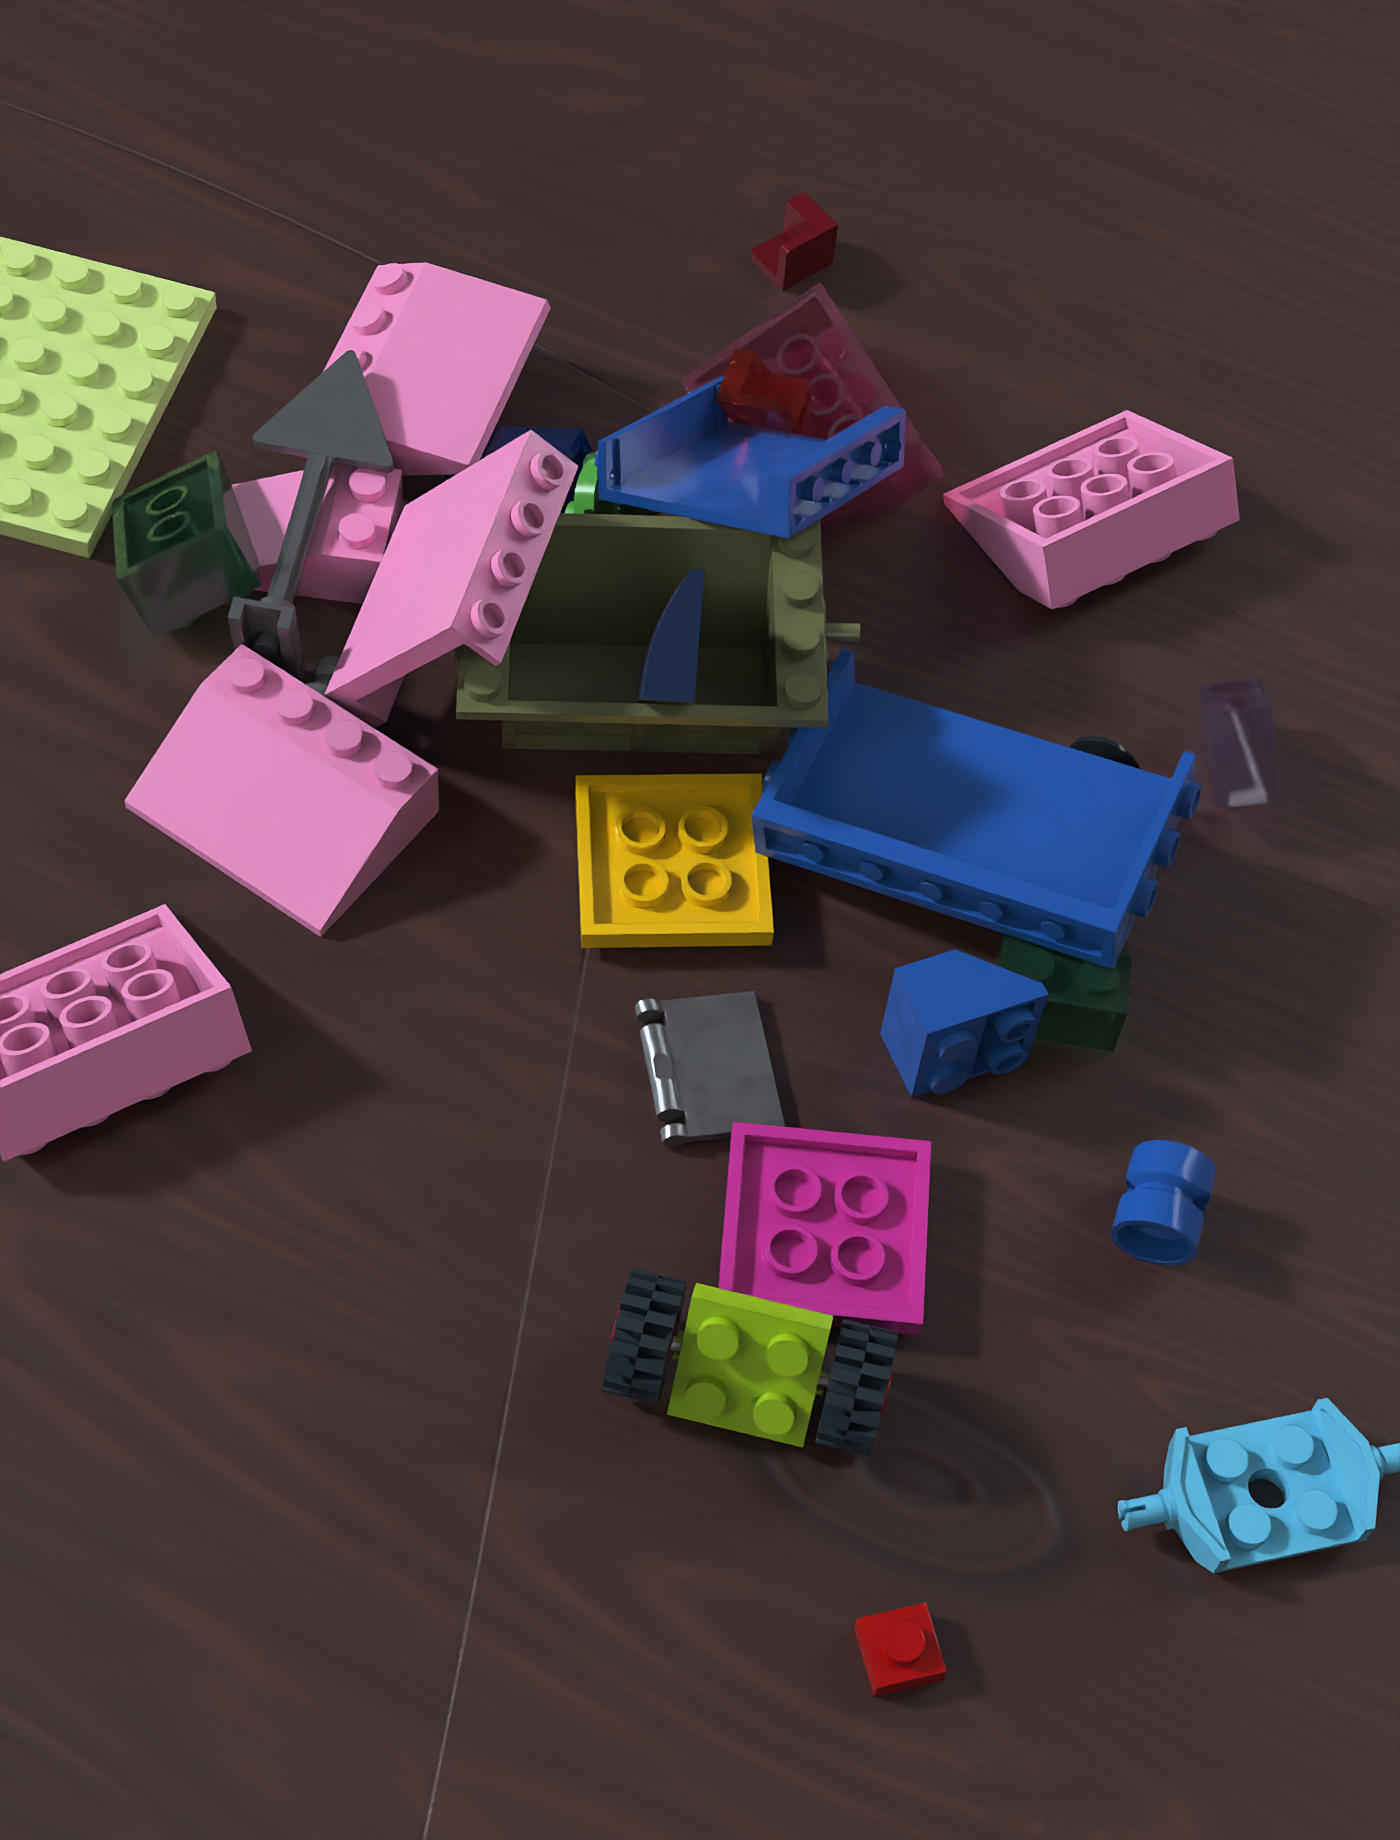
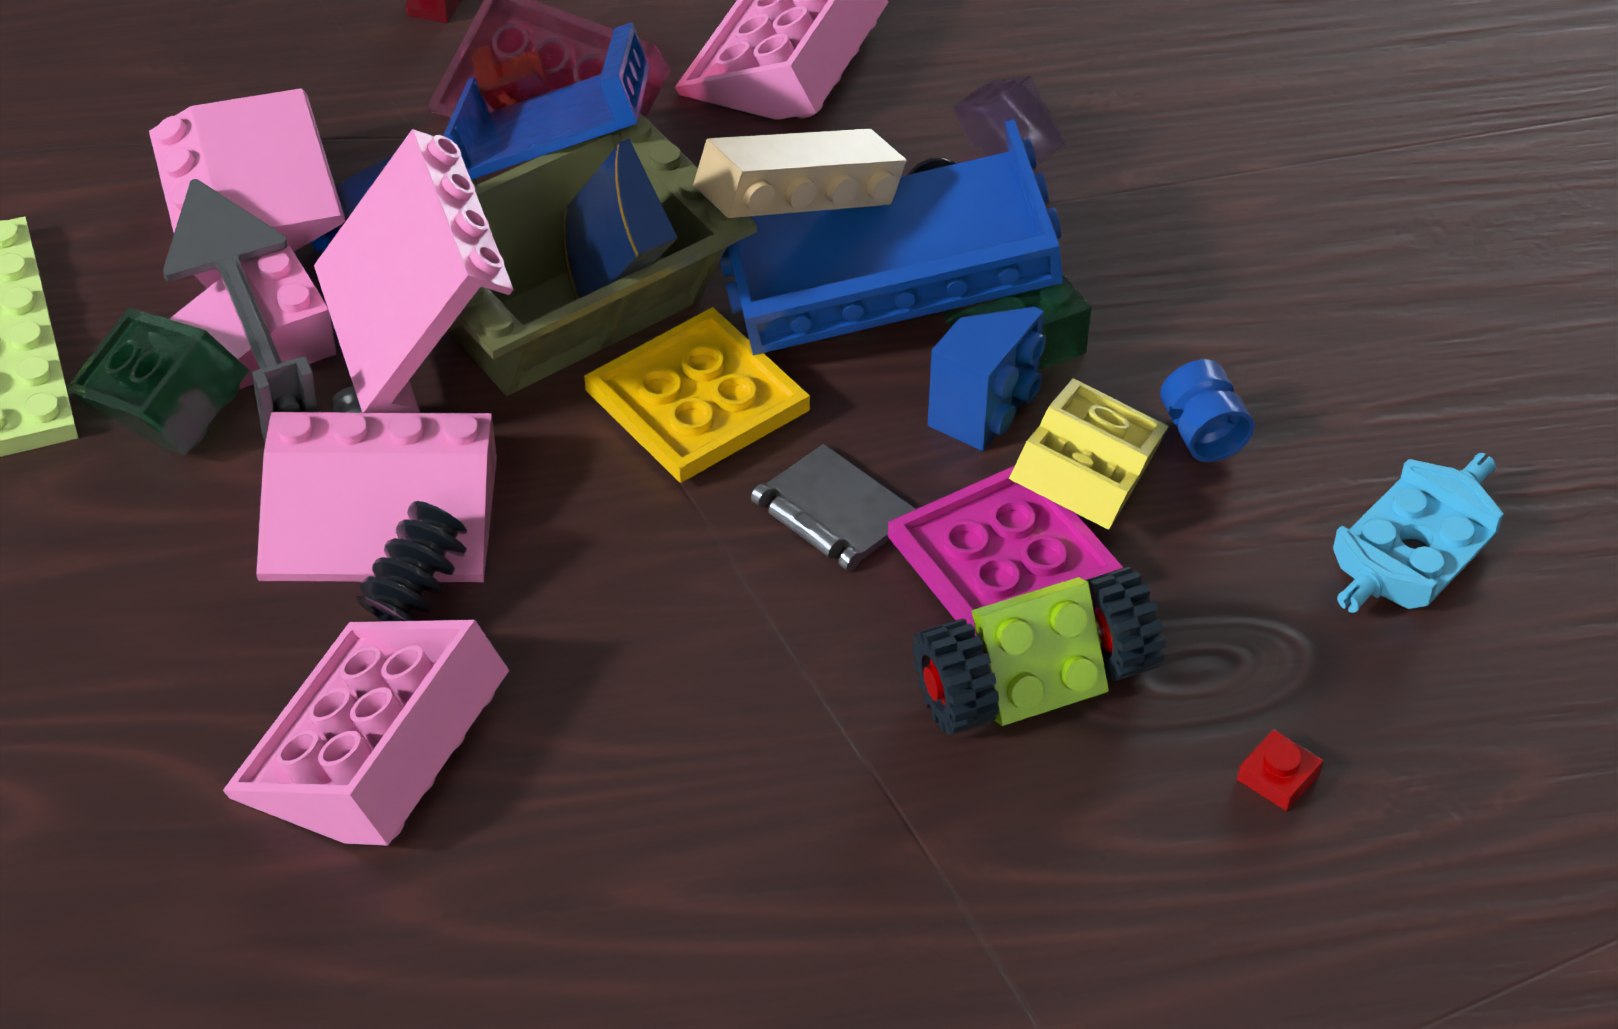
camera: 30 degrees left, 10 degrees down
(244, 891) = (412, 562): none -> black piece
(918, 687) = (798, 172): none -> tan brick
(999, 1173) = (1088, 453): none -> light yellow slope

